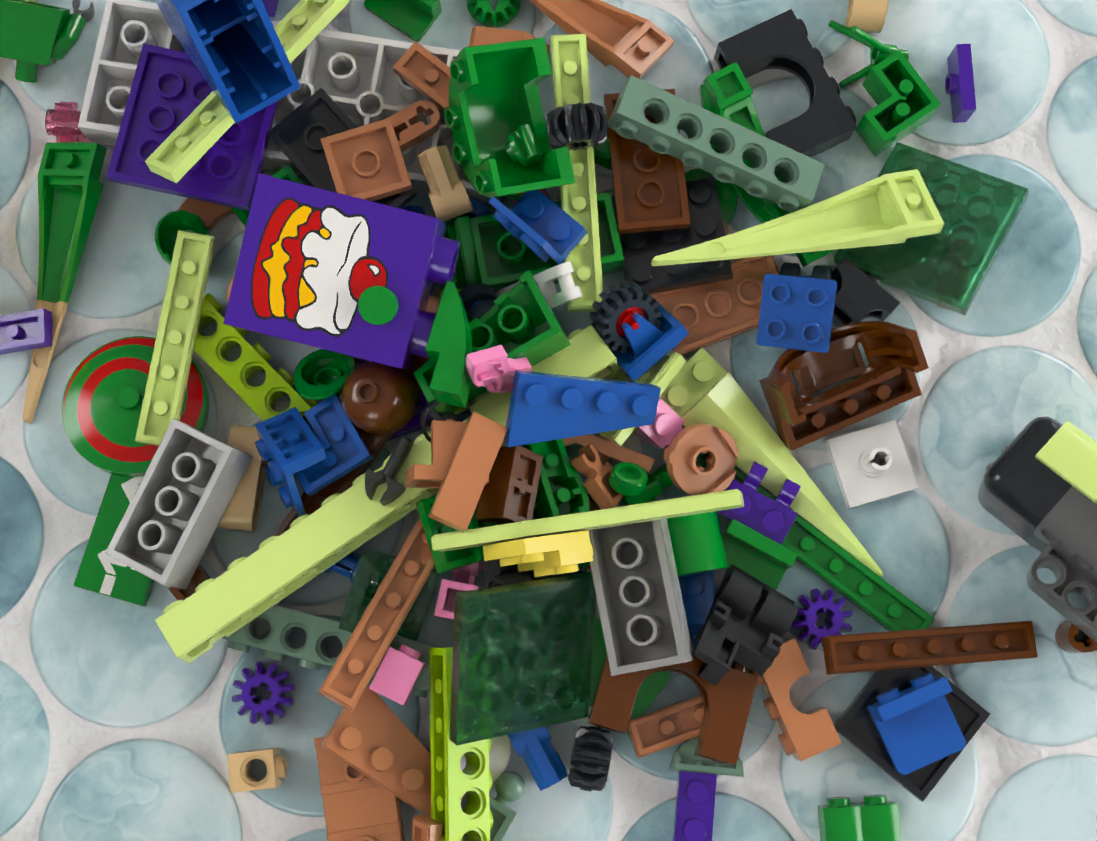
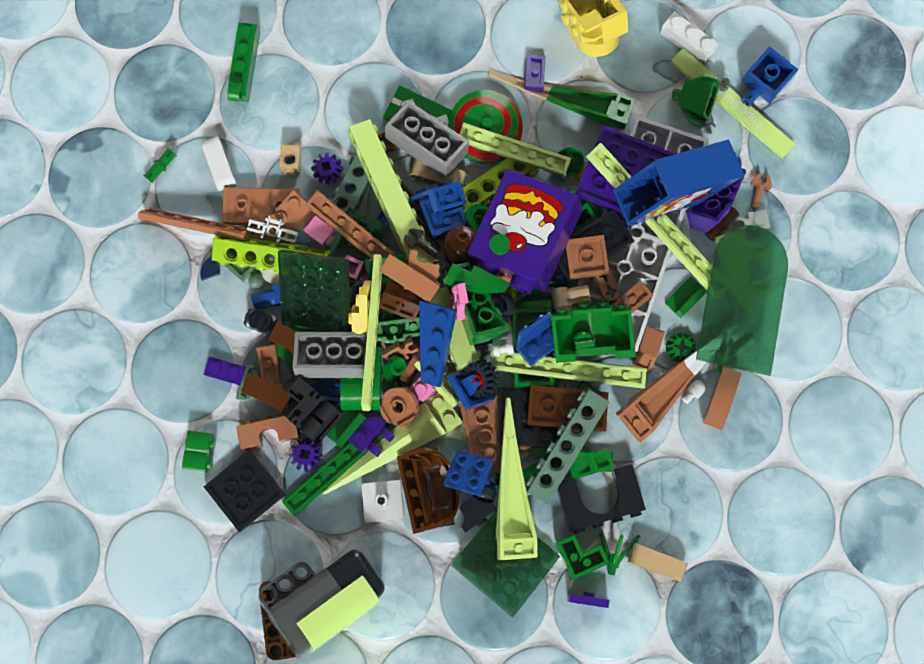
camera: 105 degrees right, 0 degrees up
(64, 122) = (644, 109): clear pink gear -> none
(403, 782) = (278, 229): none -> white piece
(577, 126) = (586, 369): black gear -> none
(917, 723) = (241, 490): blue bracket -> none
(928, 647) = (279, 508): reddish brown tile -> none

